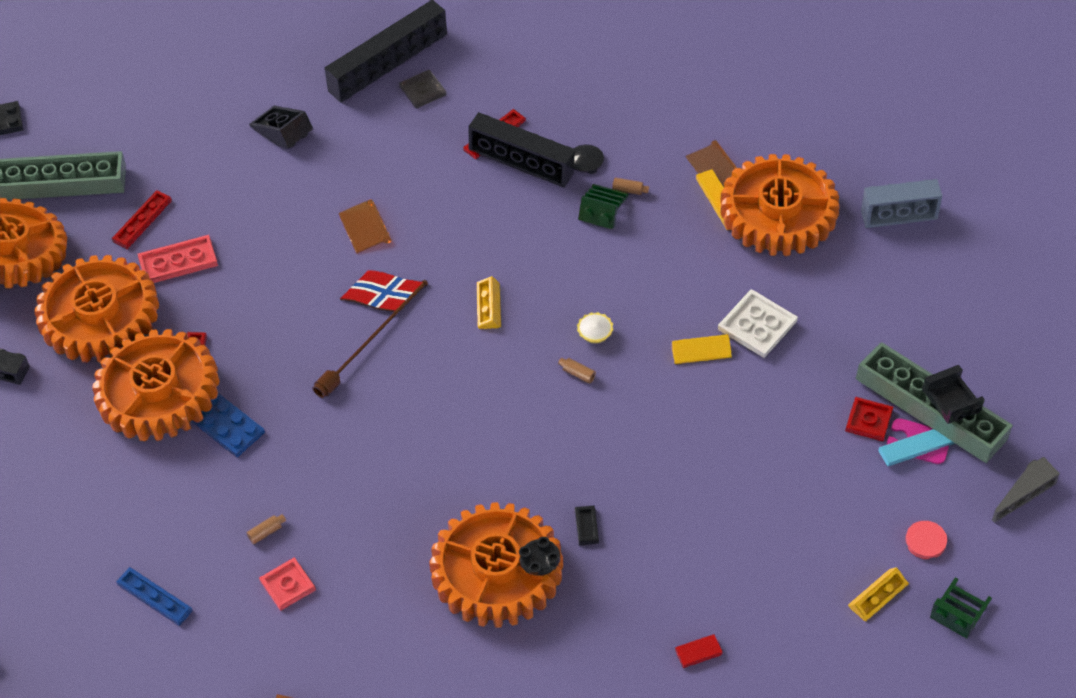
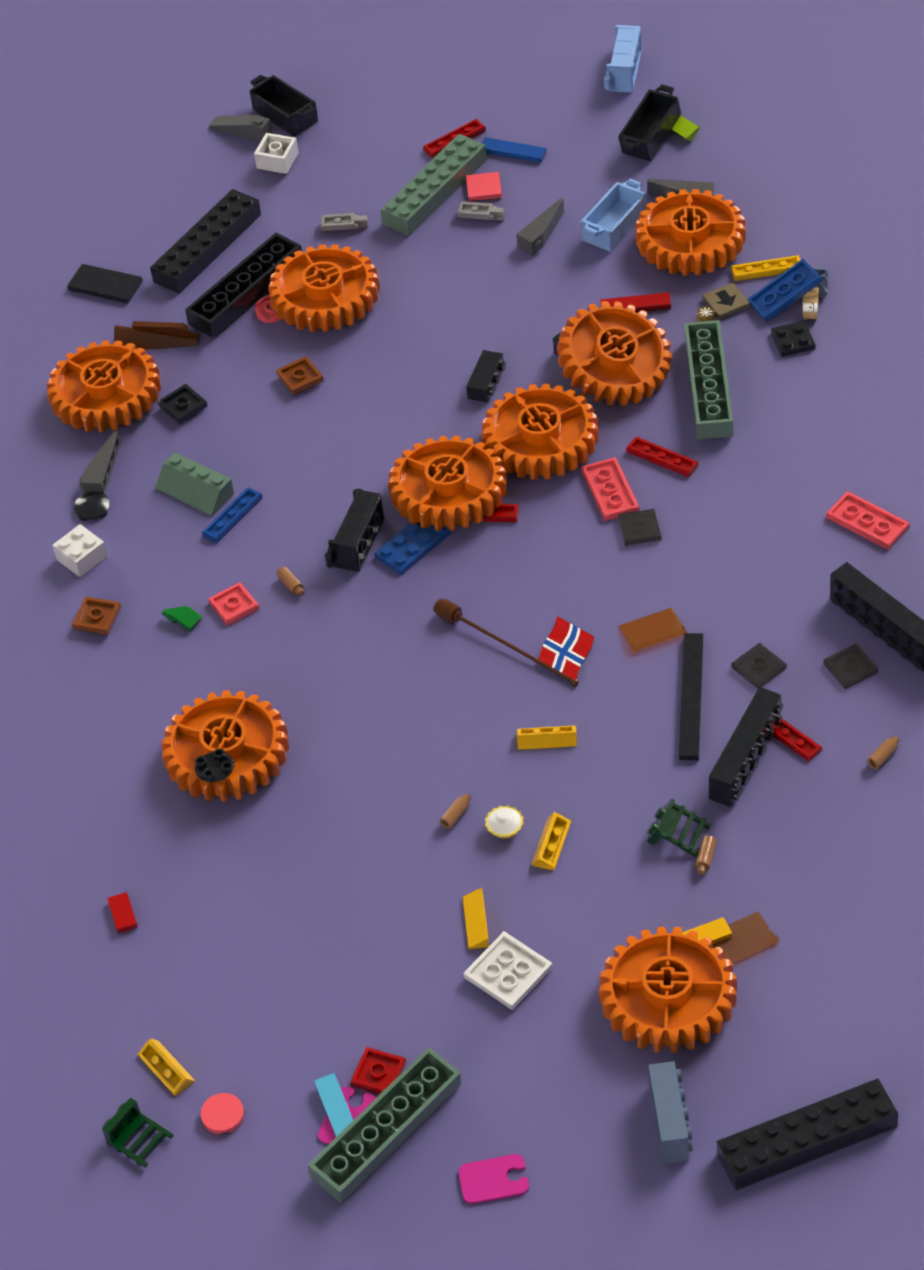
camera: 95 degrees right, 5 degrees down
(104, 635) = (194, 484): none -> sand green slope
(208, 463) = (356, 532): none -> black container
(233, 235) = (639, 527): none -> clear smoke tile
(251, 73) = (867, 520): none -> coral tile
(283, 125) = (785, 548): black slope -> none
(302, 629) = (183, 615): none -> green slope
(416, 150) = (759, 665): none -> clear smoke tile
(448, 197) = (691, 696): none -> black tile
(522, 68) = (883, 752): none -> medium nougat cylinder
(586, 525) = (271, 823): black tile -> none
(588, 158) = (749, 815): black dish -> none
(611, 298) = (551, 841): none -> yellow slope
(907, 123) = (807, 1134): none -> black brick
(951, 395) = (375, 1130): black panel -> none
(968, 336) = (488, 1179): none -> dark pink piece
(1035, 480) = (278, 1215): dark grey slope -> none

